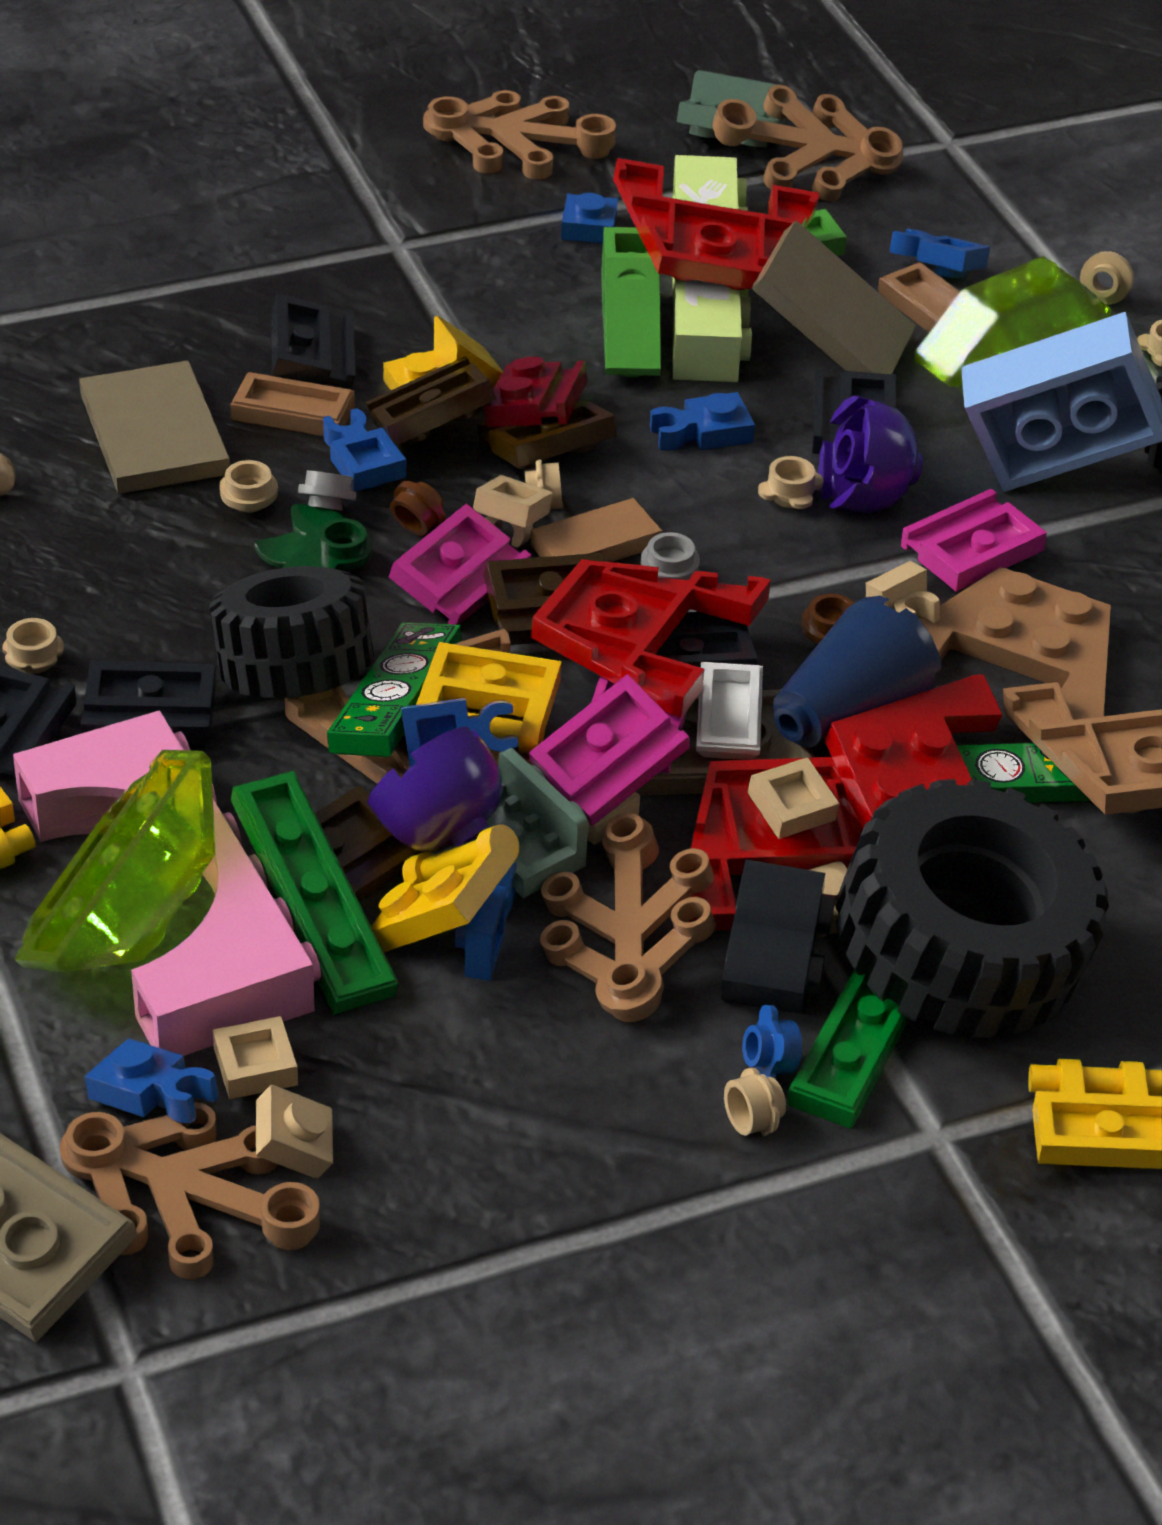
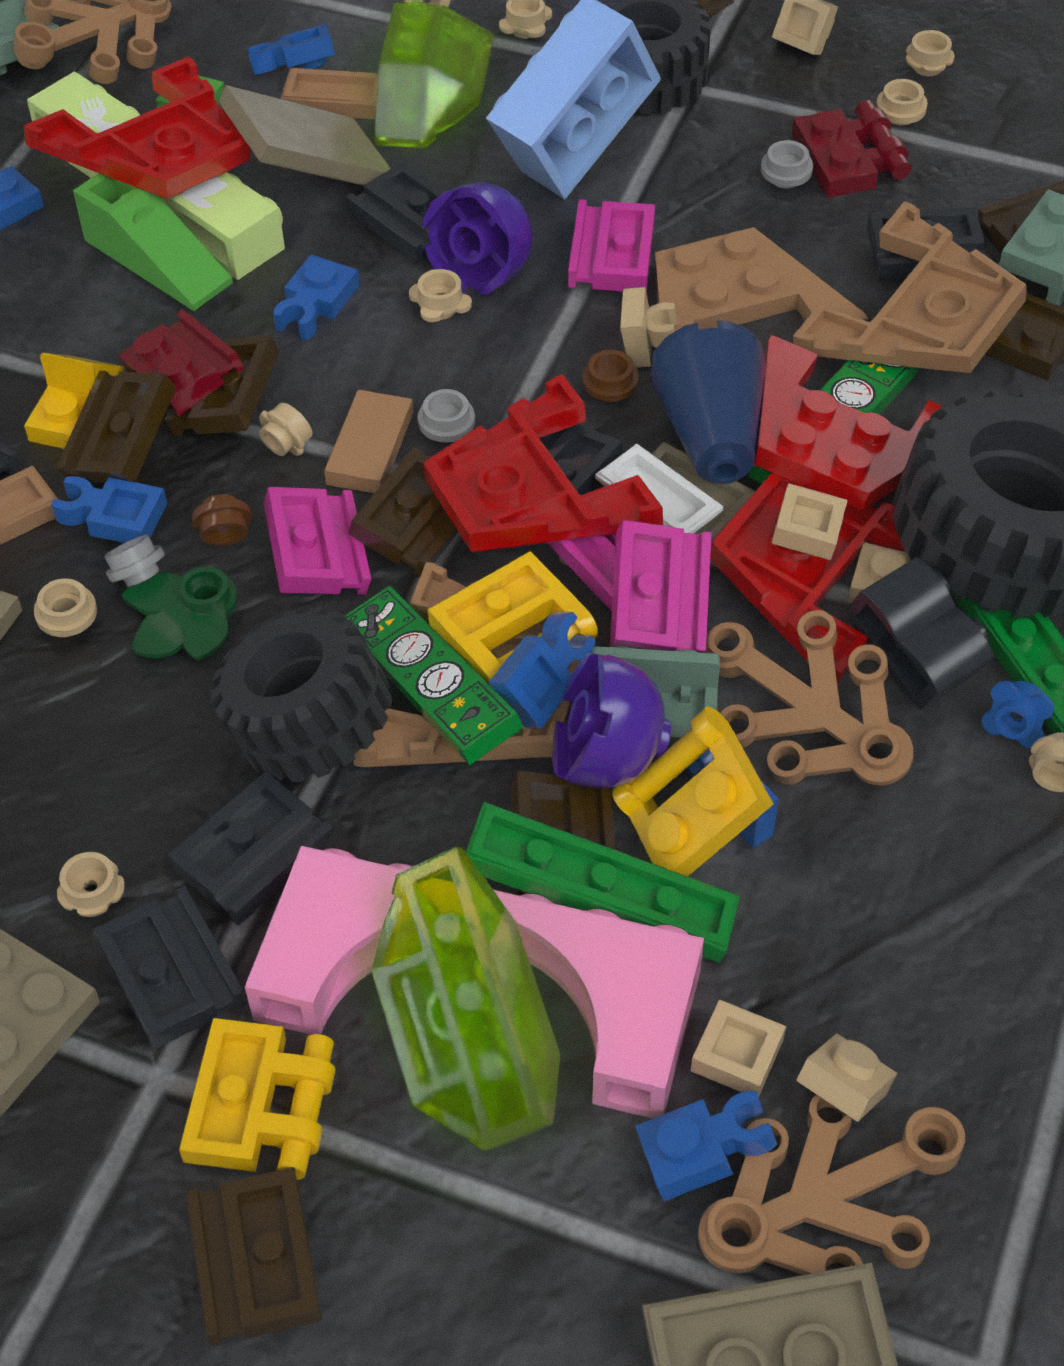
camera: 45 degrees left, 10 degrees up
(514, 503) = (295, 460): tan tile -> none

